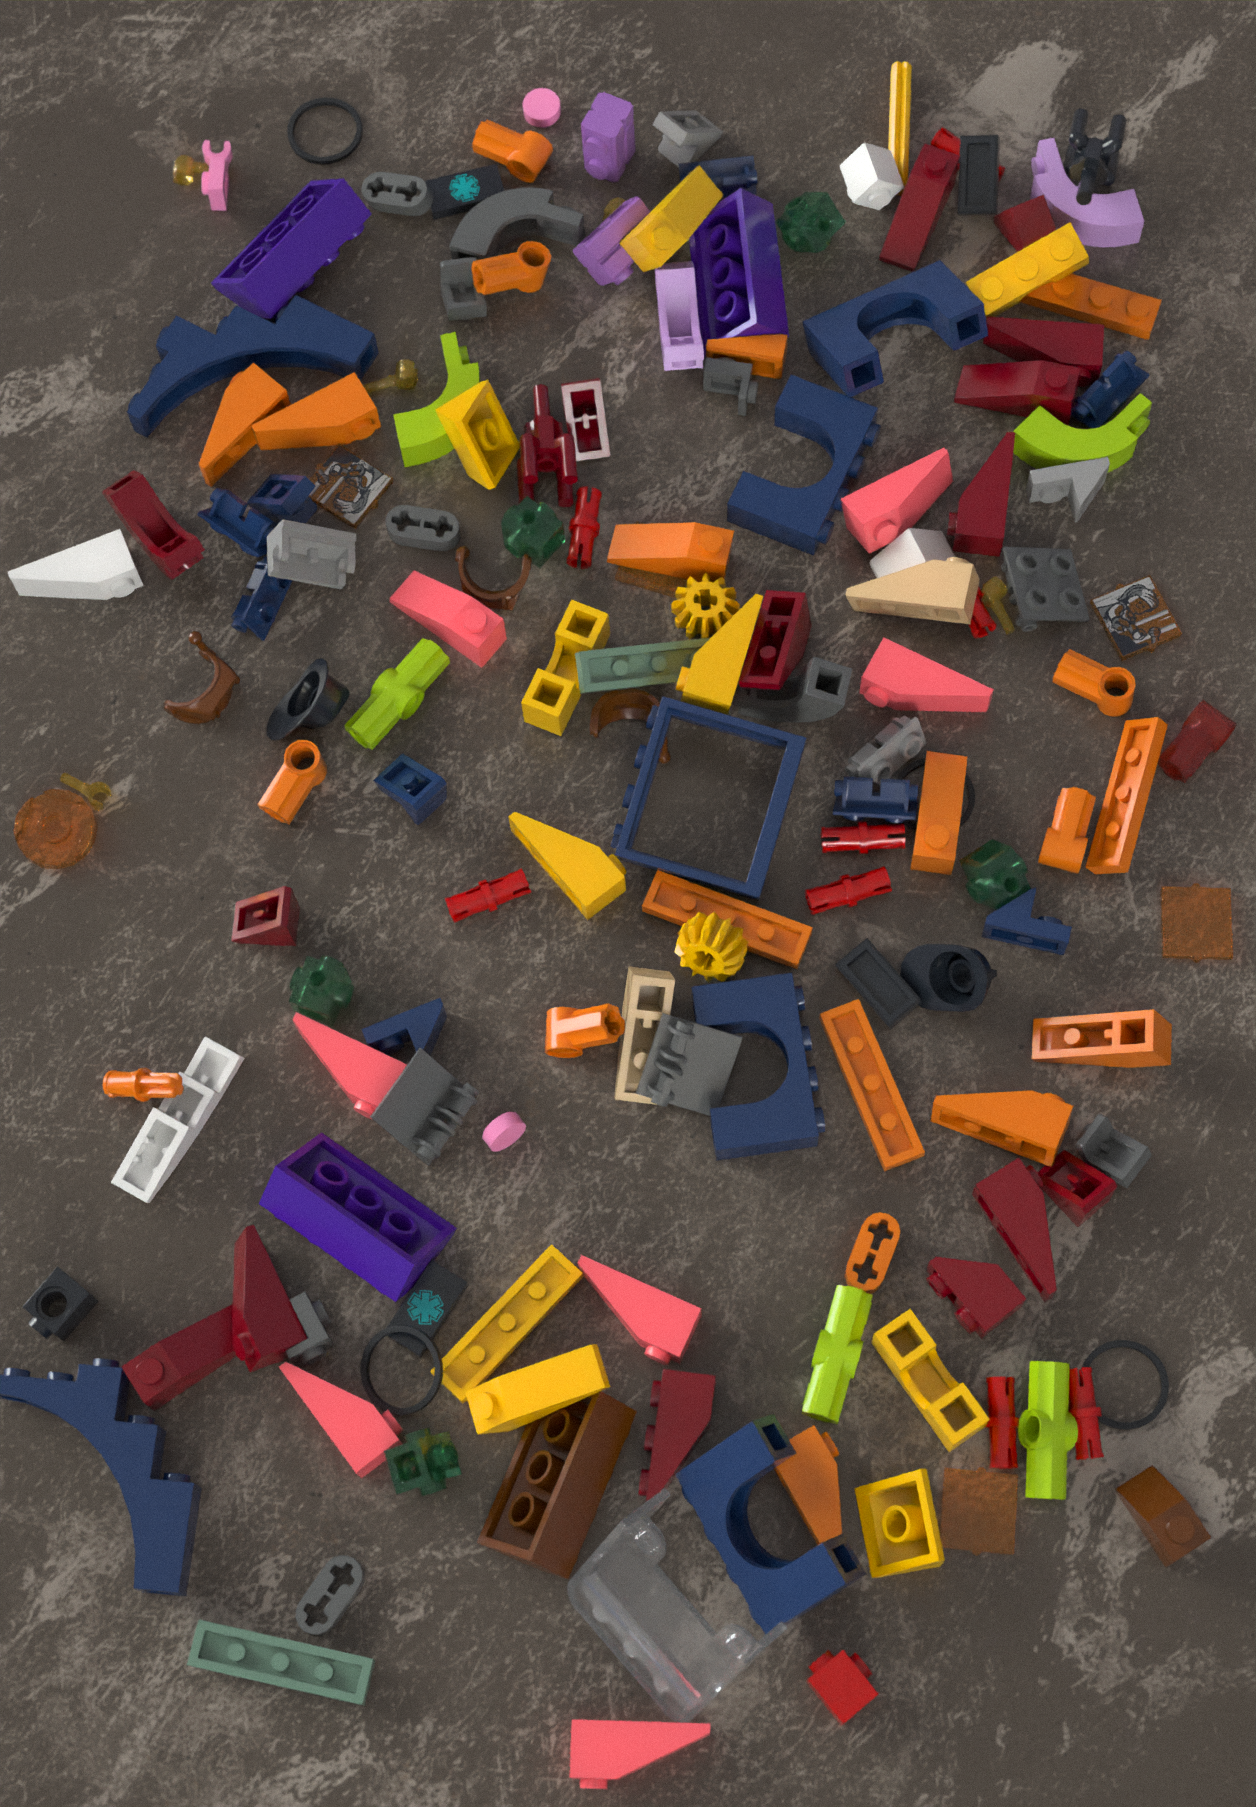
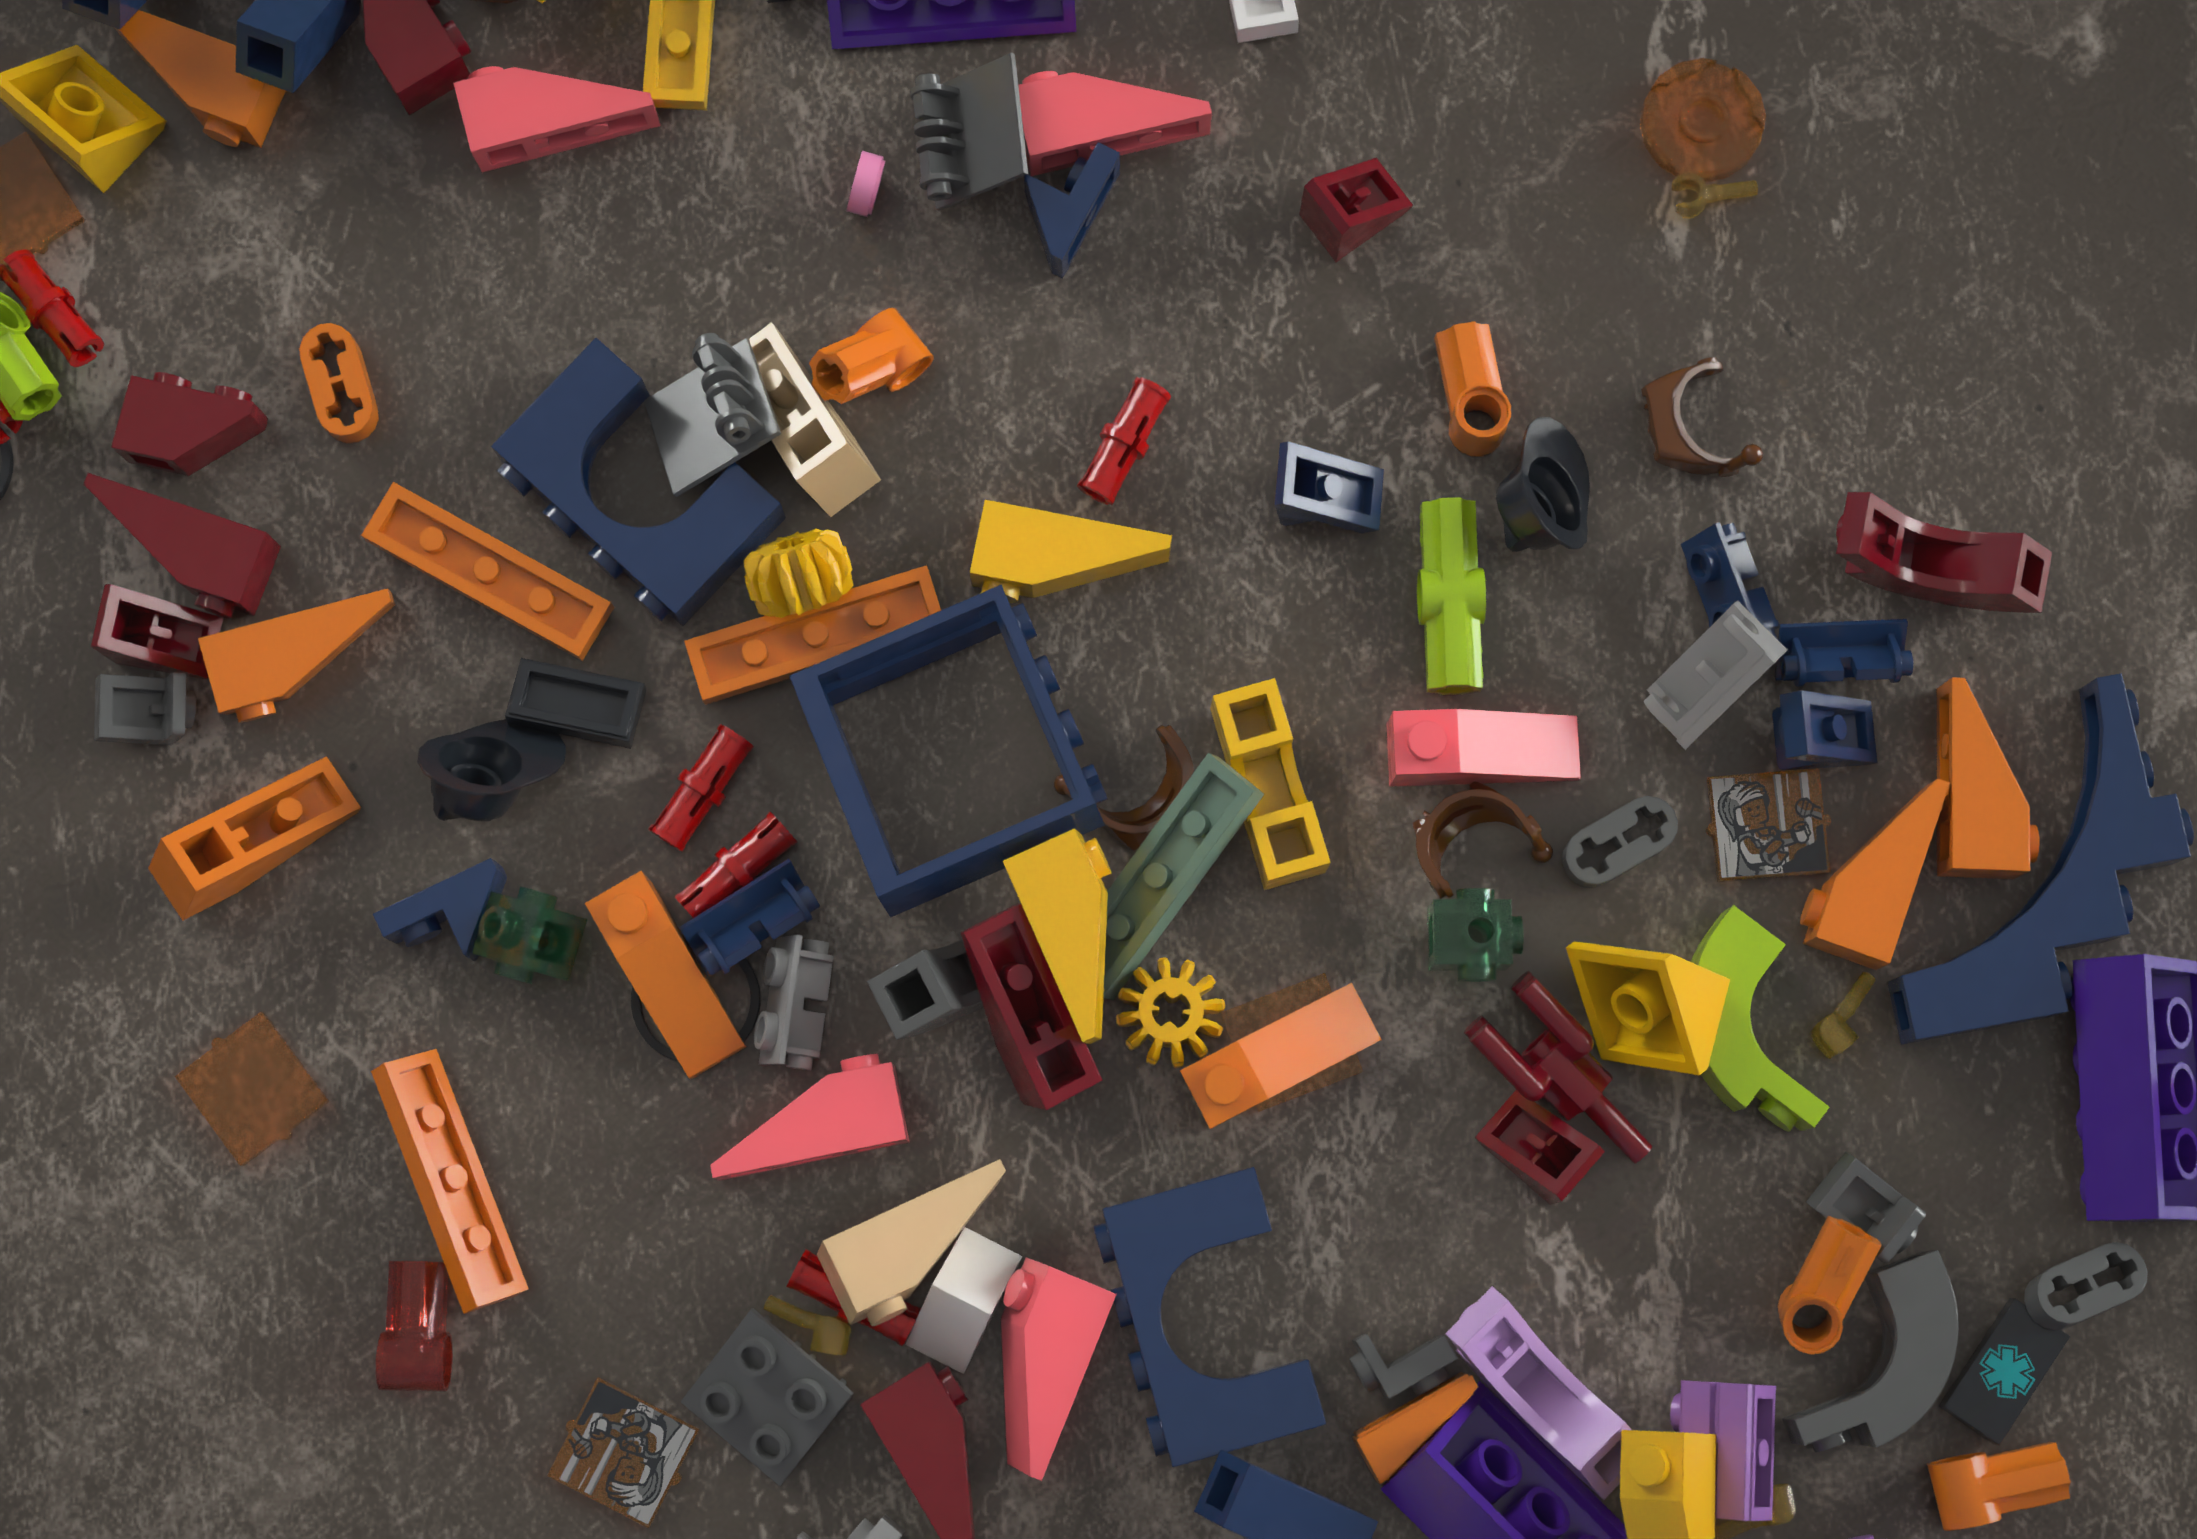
camera: 135 degrees right, 10 degrees up
(86, 571) = (1964, 453): white slope -> none
(321, 989) = (1212, 168): clear green brick -> none
(584, 527) = (1418, 1004): red pin -> none
(837, 1354) = (289, 236): lime piece -> none
(937, 1395) = (187, 290): yellow arch -> none
(1066, 839) = (481, 1058): orange piece -> none
(1092, 680) = (608, 1304): orange piece -> none

